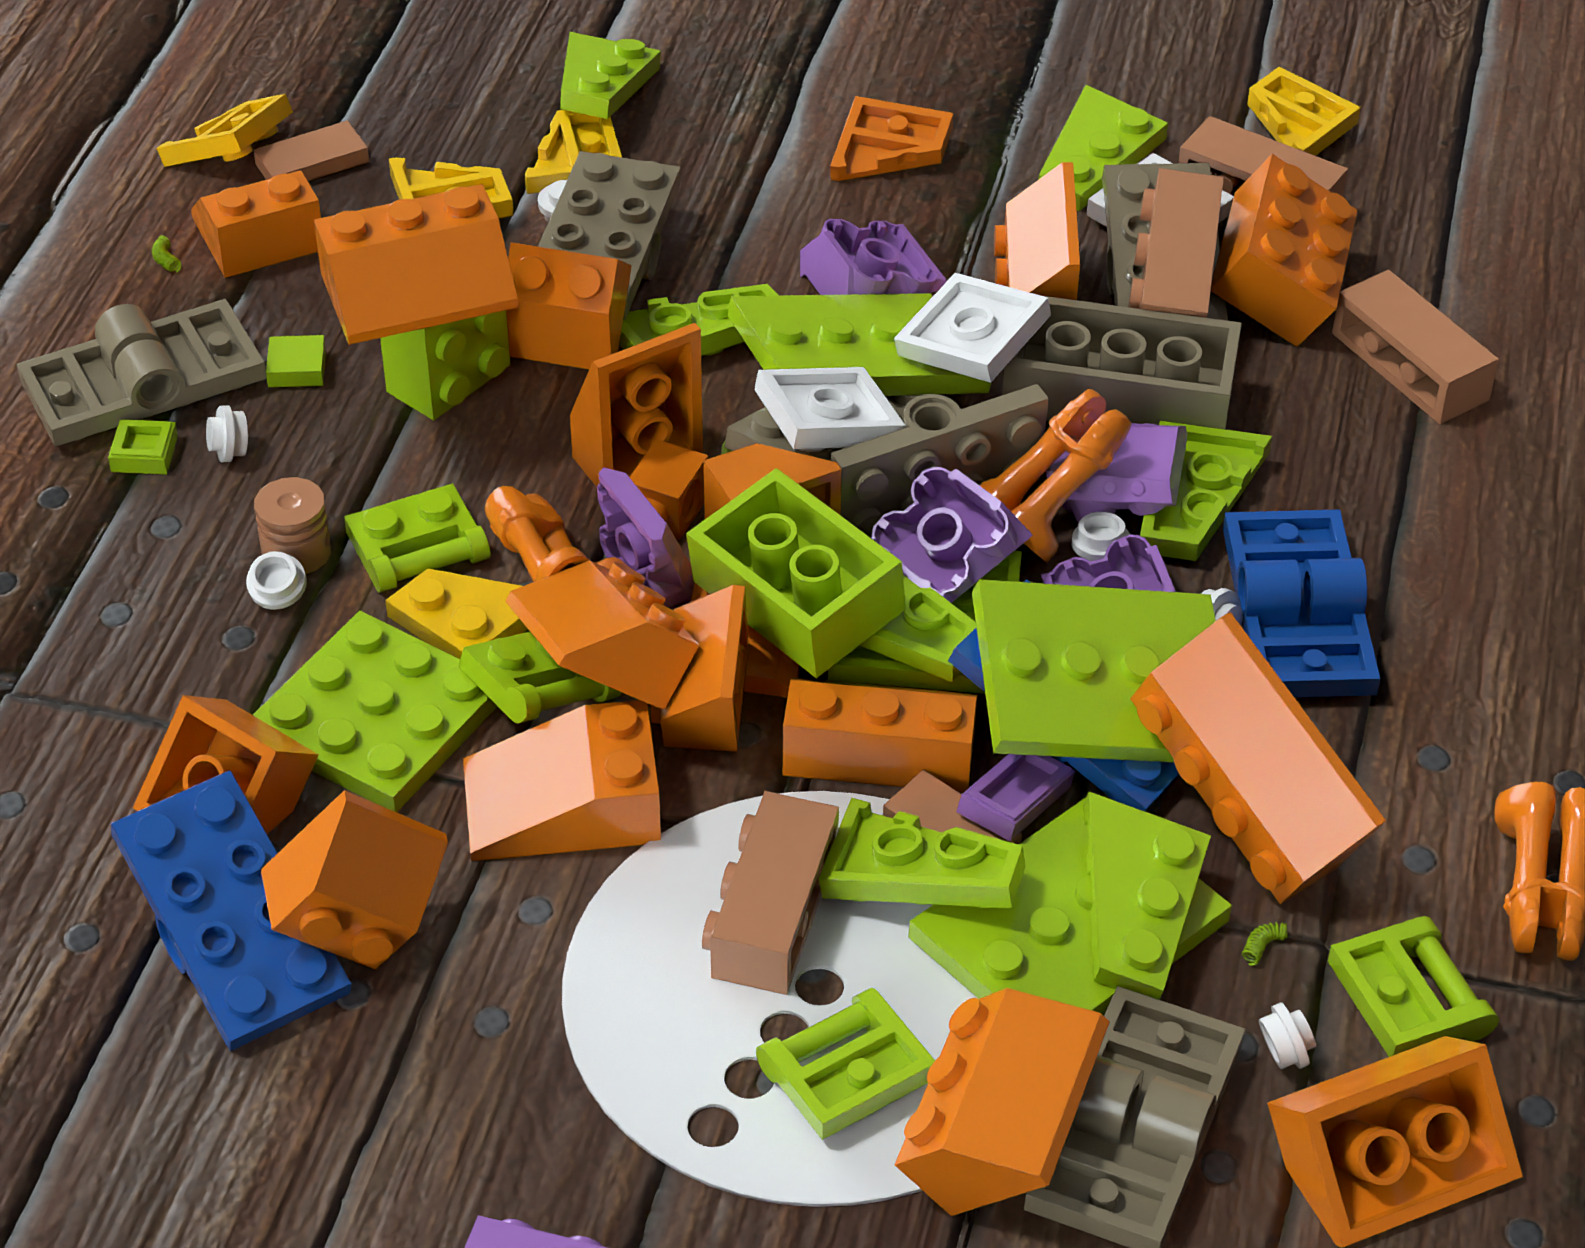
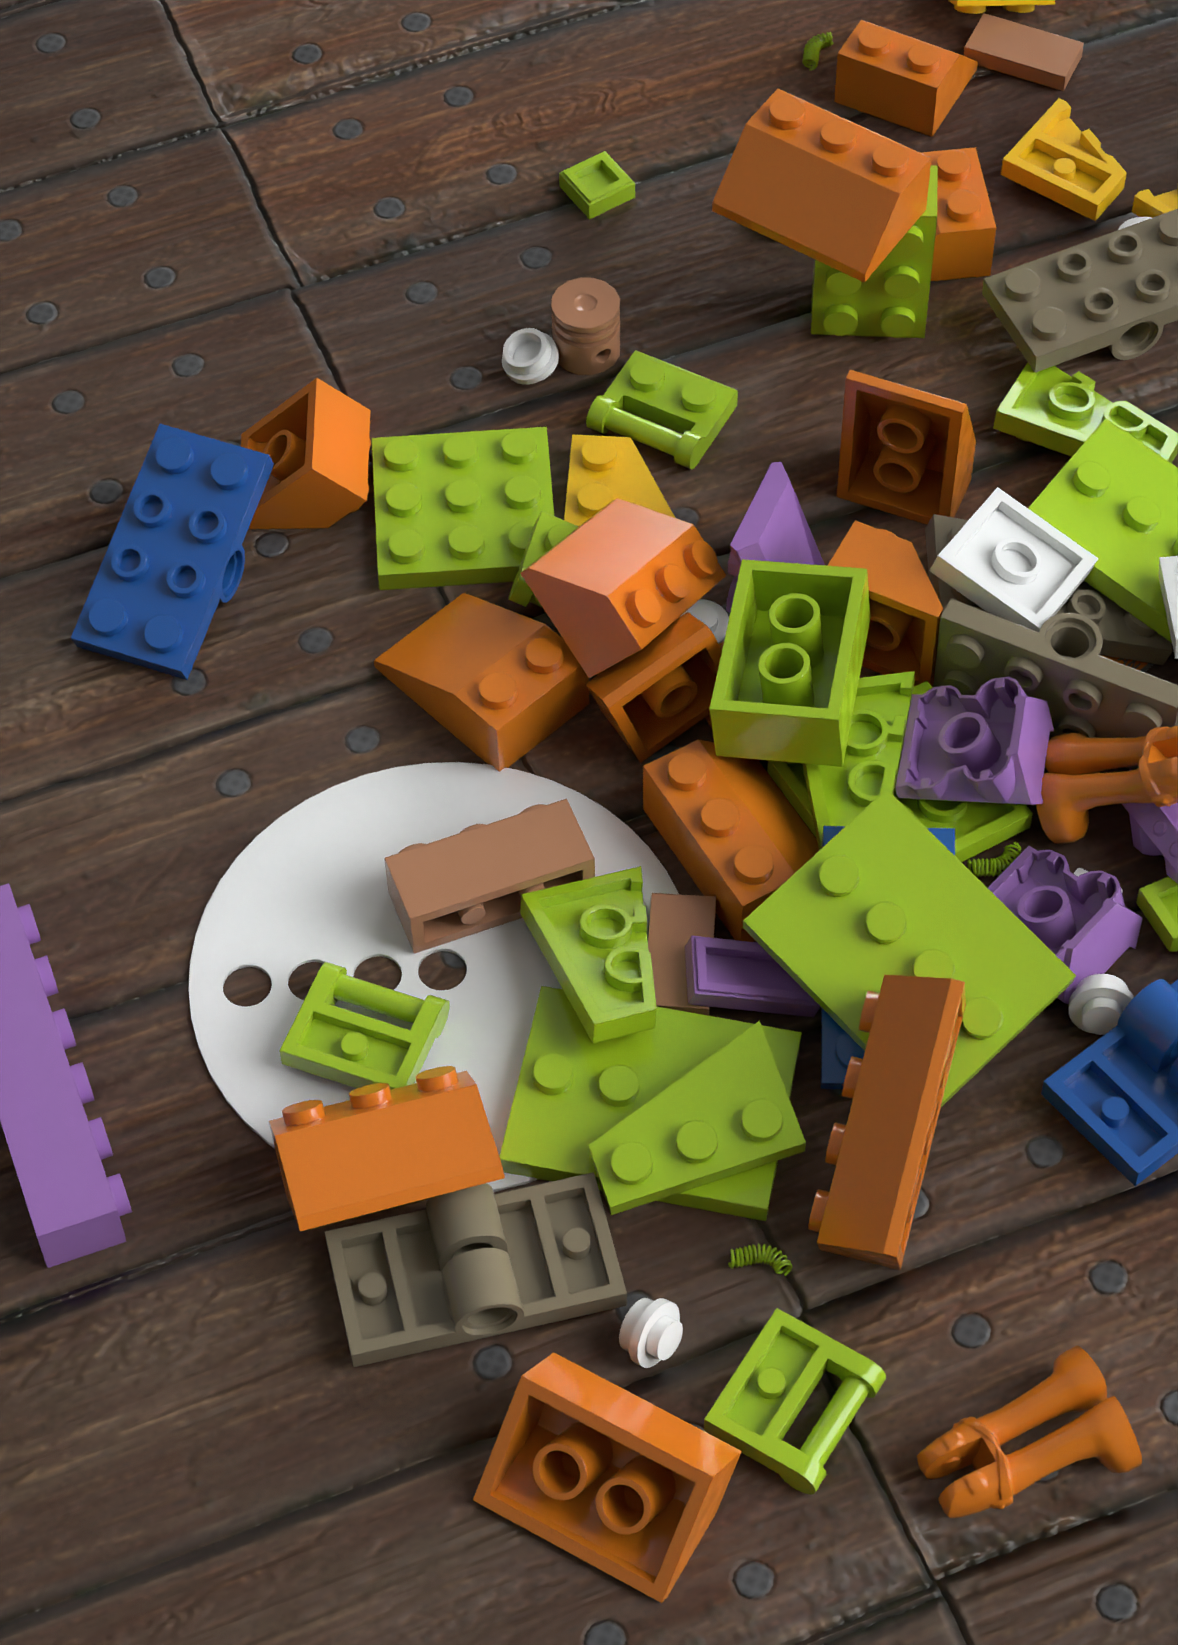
camera: 55 degrees right, 10 degrees up
(140, 369) = (652, 119): dark tan plate -> none
(227, 433) = (650, 221): white plate -> none
(354, 880) = (235, 602): orange slope -> none
(534, 531) = (734, 477): orange piece -> none
(566, 305) = (988, 317): orange slope -> none
(672, 483) = (872, 505): orange brick -> none
(1096, 534) = (1123, 858): white plate -> none

